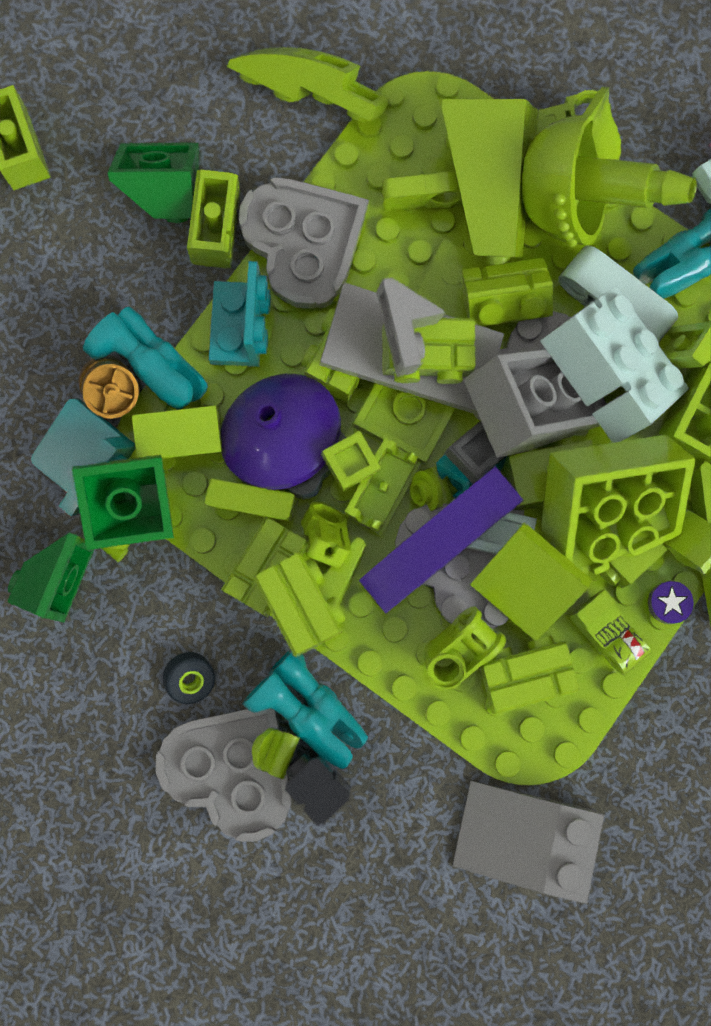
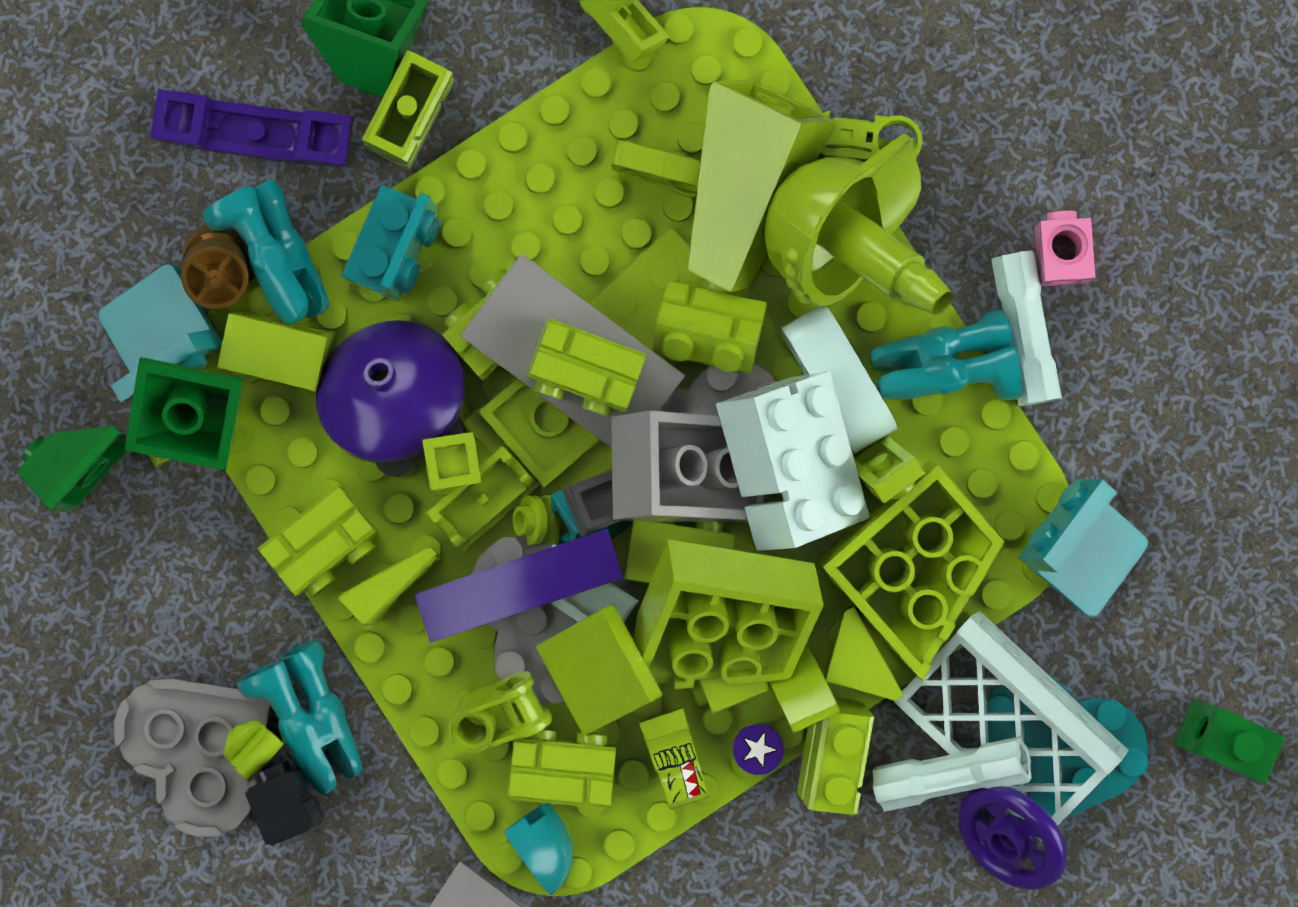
camera: 20 degrees right, 5 degrees up
(100, 282) = (252, 130): none -> dark purple slope
(179, 668) = (188, 614): black wheel -> none
(250, 499) = (326, 460): lime slope -> none
(299, 604) = (335, 599): lime brick -> none
(305, 236) = (505, 169): light grey plate -> none
(326, 534) = (398, 529): lime piece -> none
(401, 313) = (559, 324): light grey slope -> none
(534, 742) = (543, 846): none -> teal brick

